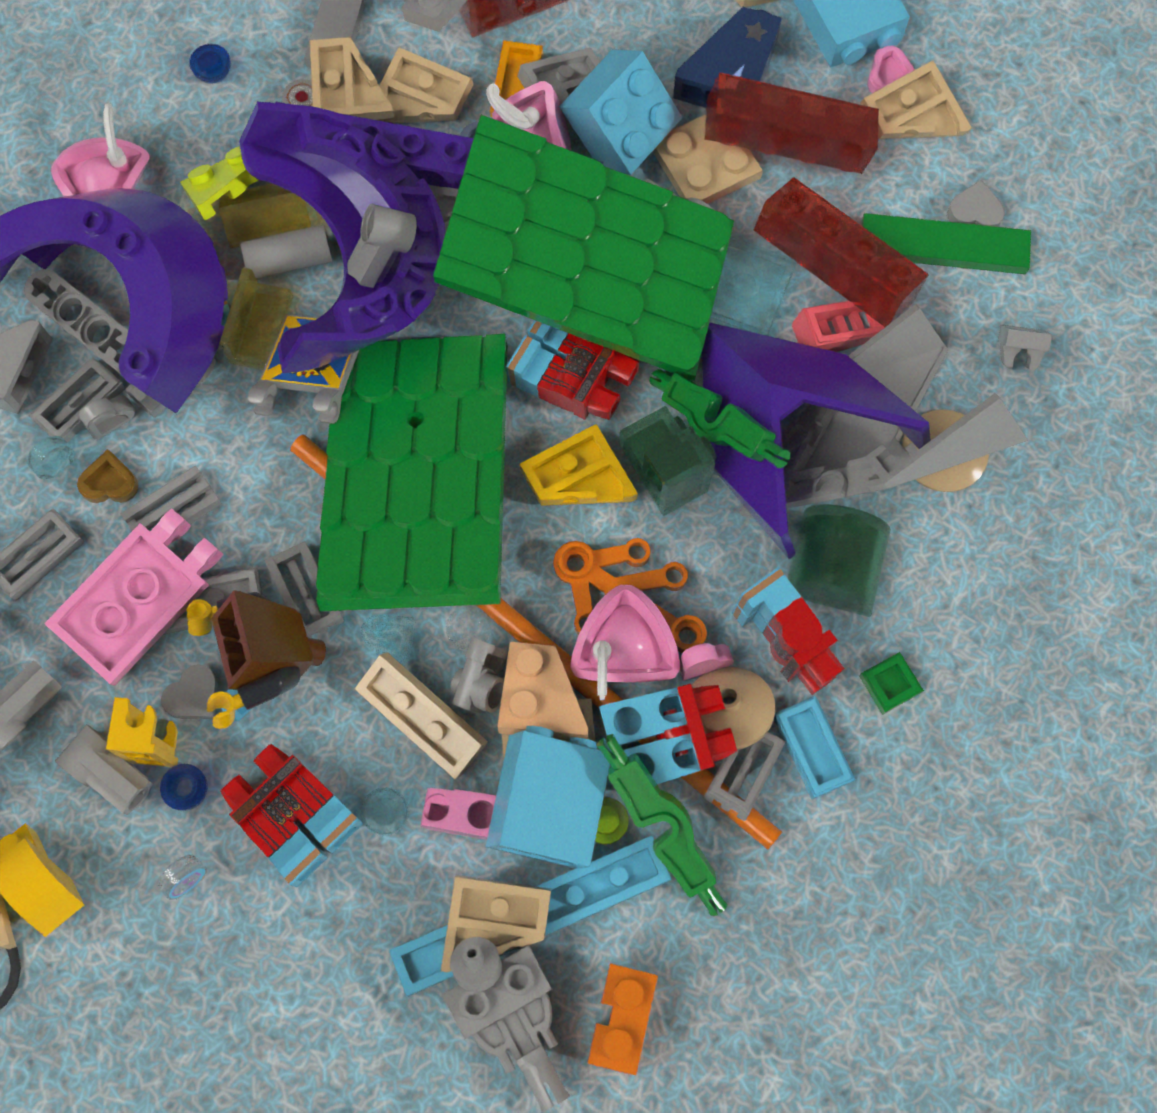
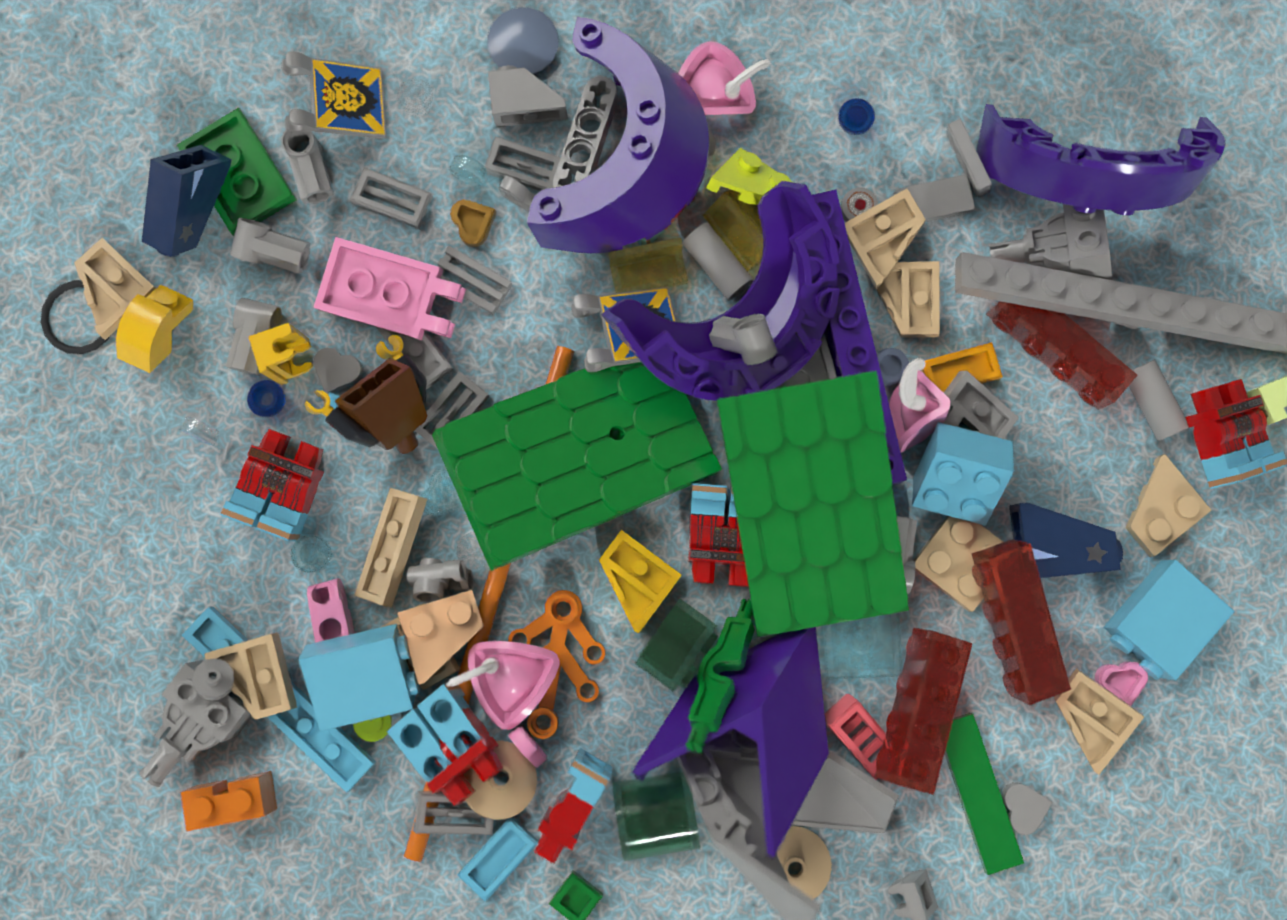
camera: 65 degrees right, 10 degrees up
(651, 805) = (385, 756): green piece -> none

